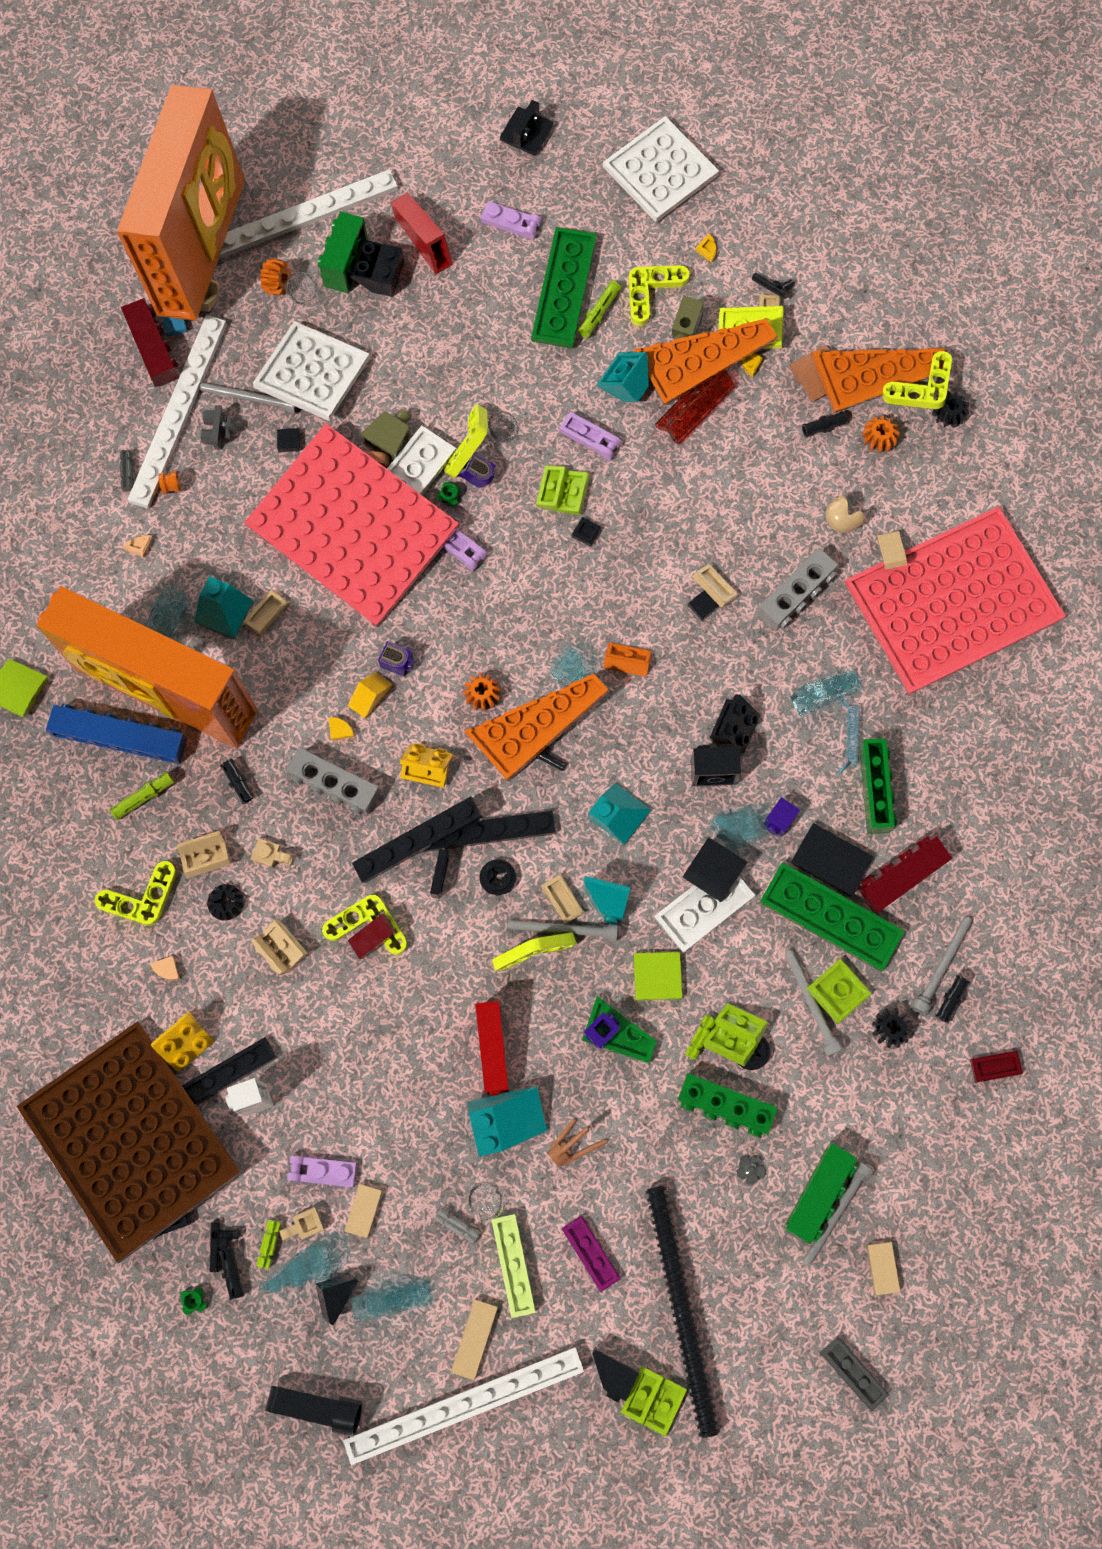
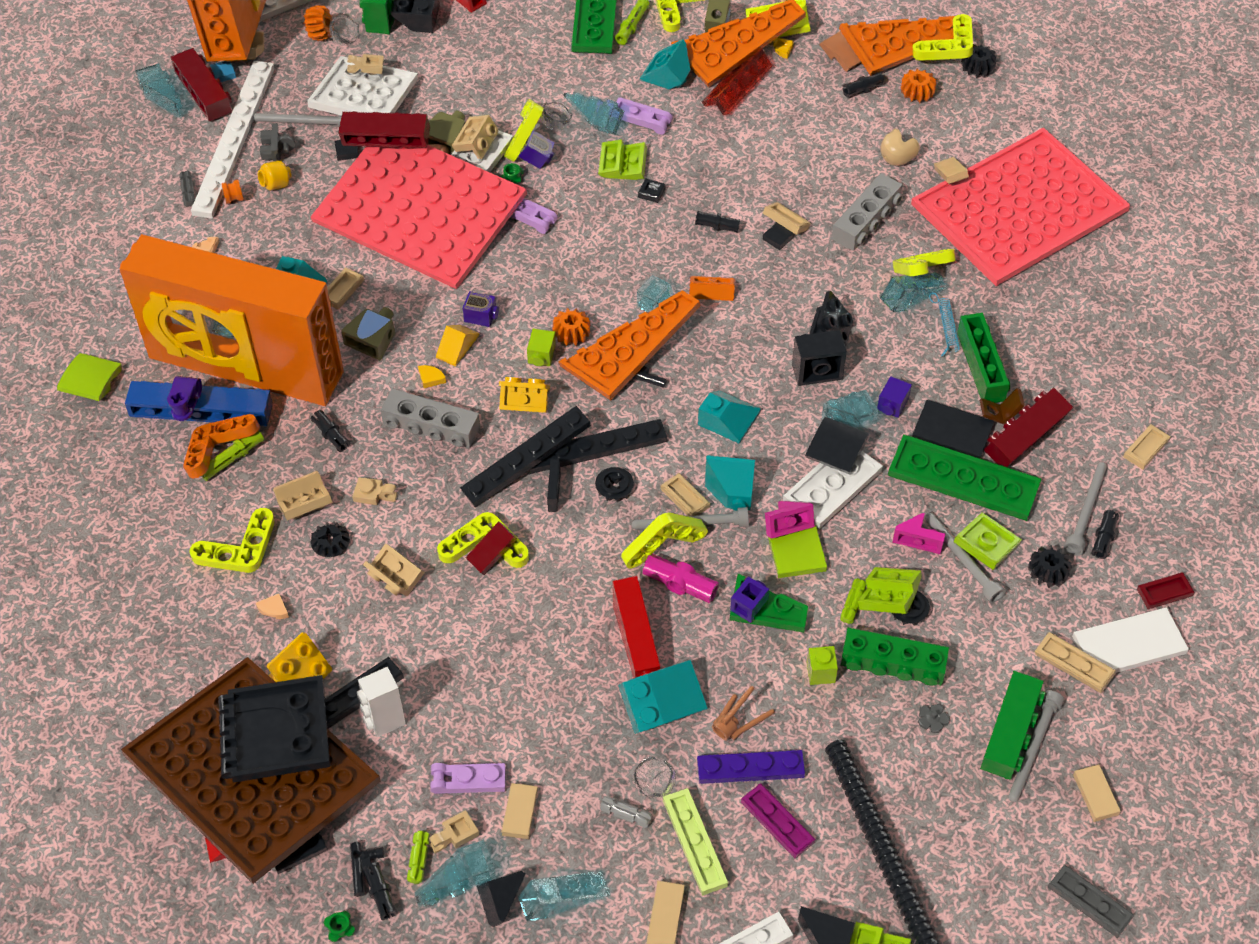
camera: 10 degrees left, 20 degrees down
(100, 734) = (184, 396): none -> dark purple piece
(103, 335) = (158, 90): none -> clear light blue slope
(123, 777) = (213, 433): none -> orange beam
(152, 1110) = (273, 729): none -> black hinge
(212, 467) = (274, 175): none -> yellow head
(288, 672) = (370, 332): none -> olive torso
(320, 340) = (368, 64): none -> tan plate
(324, 437) = (384, 129): none -> dark red brick
(417, 447) = (476, 135): none -> tan bracket
(449, 713) = (541, 347): none -> lime brick
(543, 432) = (599, 114): none -> clear light blue slope
(543, 992) = (680, 578): none -> dark pink piece
(576, 1196) = (750, 766): none -> dark purple plate
(645, 581) = (717, 221): none -> black pin
(656, 945) = (789, 518): none -> dark pink slope
(657, 1105) = (822, 665): none -> lime brick
(769, 974) = (913, 535): none -> dark pink slope
(826, 663) = (919, 264): none -> neon yellow beam
(887, 846) = (1006, 410): none -> reddish brown bracket
(892, 1134) = (1075, 662): none -> tan tile
(949, 1118) = (1133, 640): none -> white tile
(1016, 904) = (1146, 446): none -> tan tile

